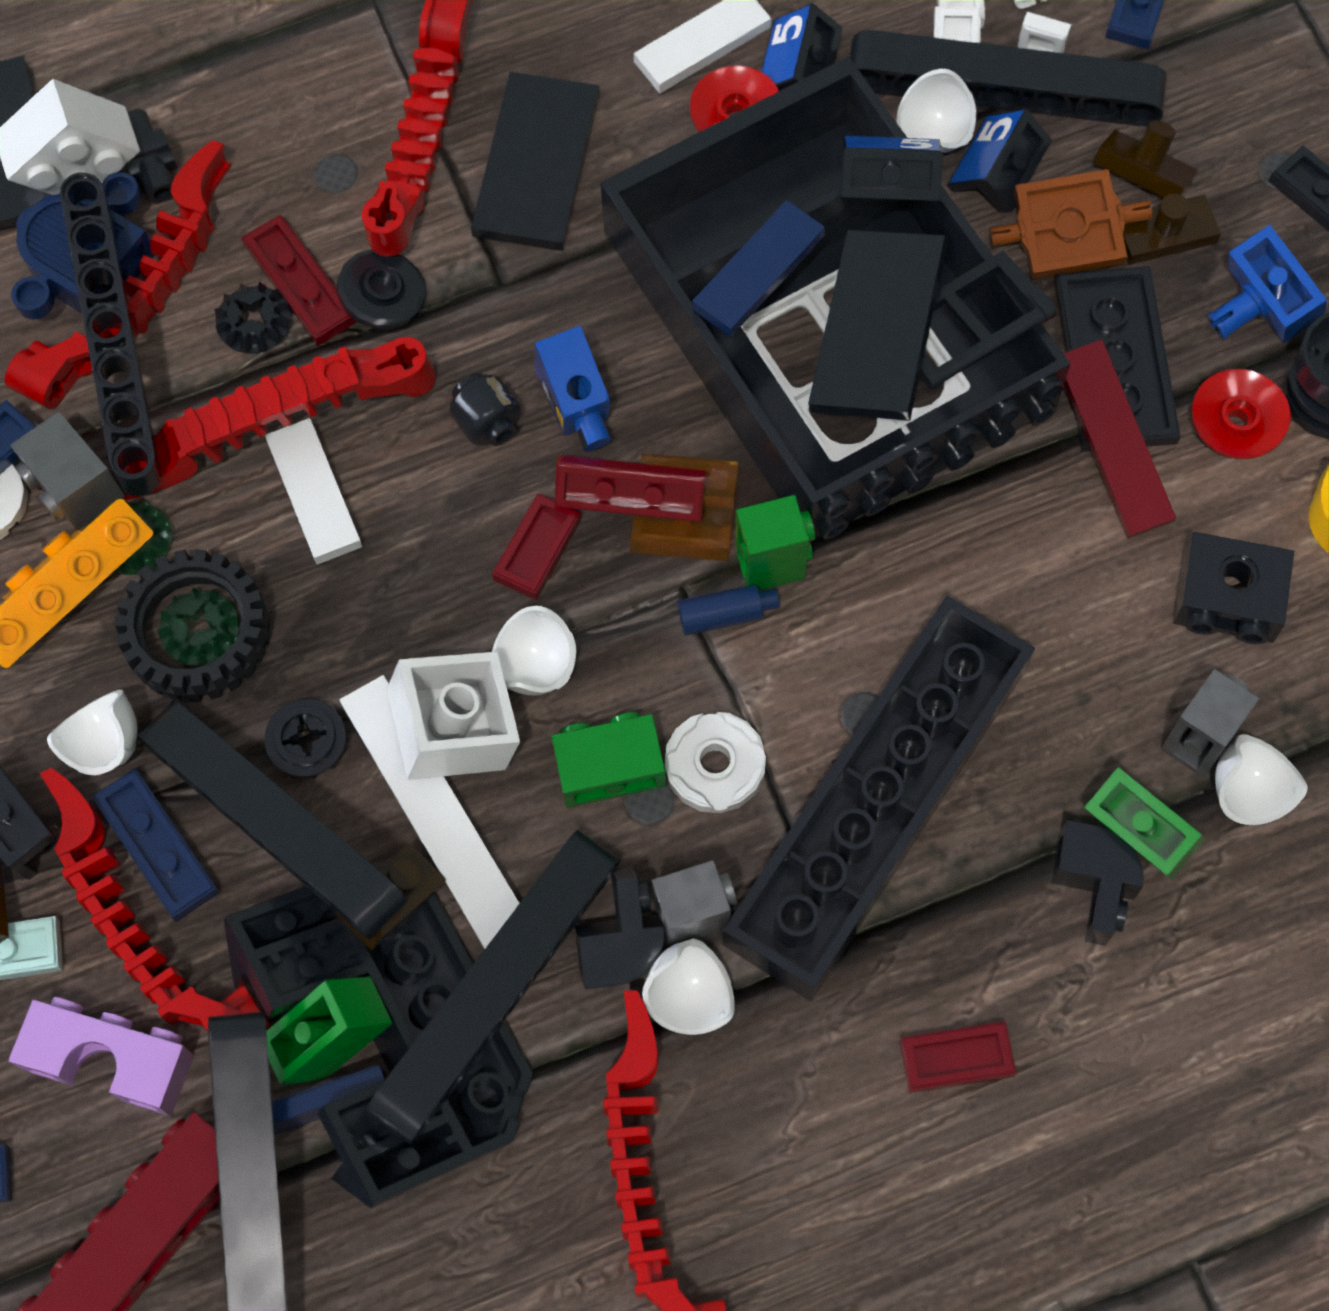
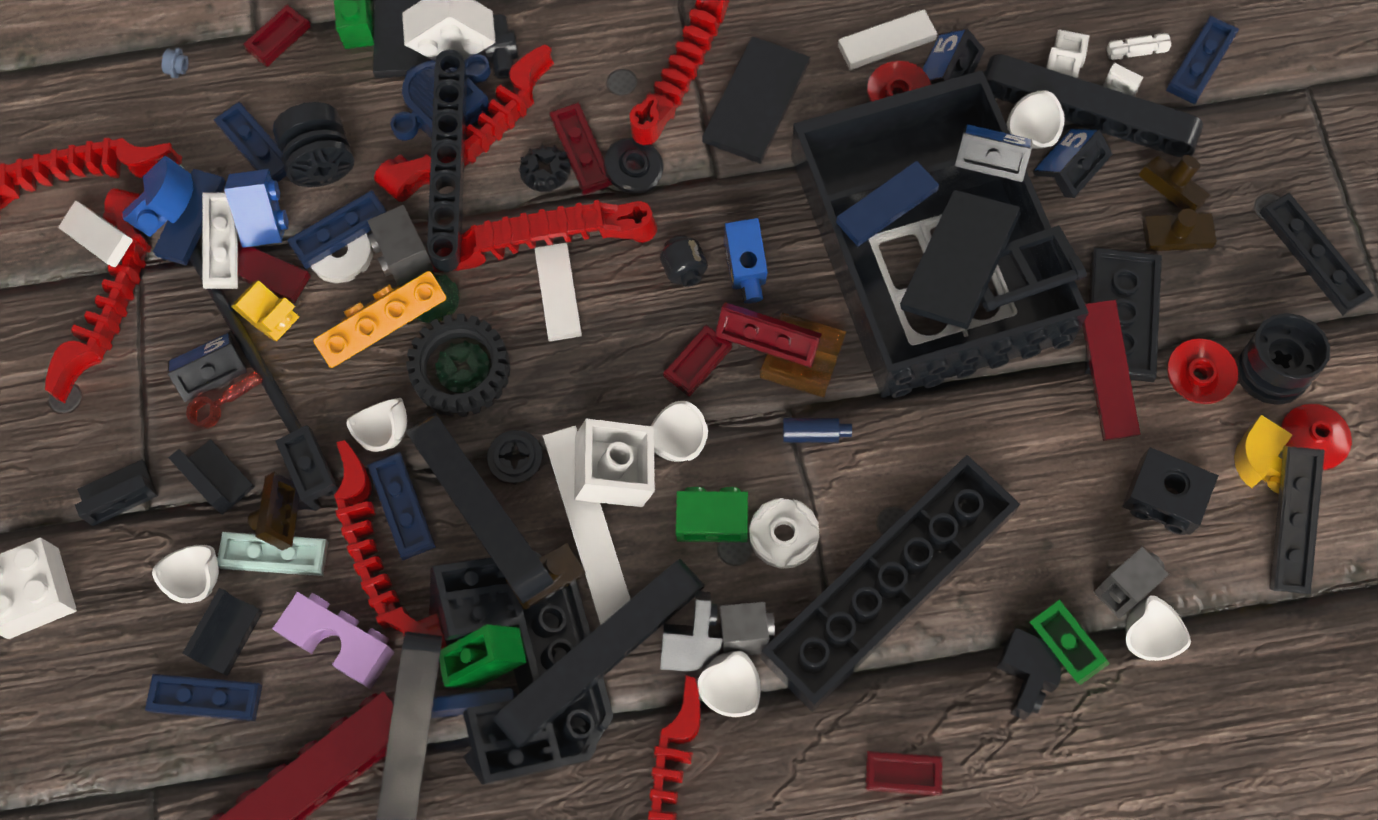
camera: 15 degrees right, 0 degrees up
(773, 542) = (856, 392): green brick -> none
(1070, 224) = (1112, 215): dark orange plate -> none
(1271, 288) = (1243, 287): blue brick -> none

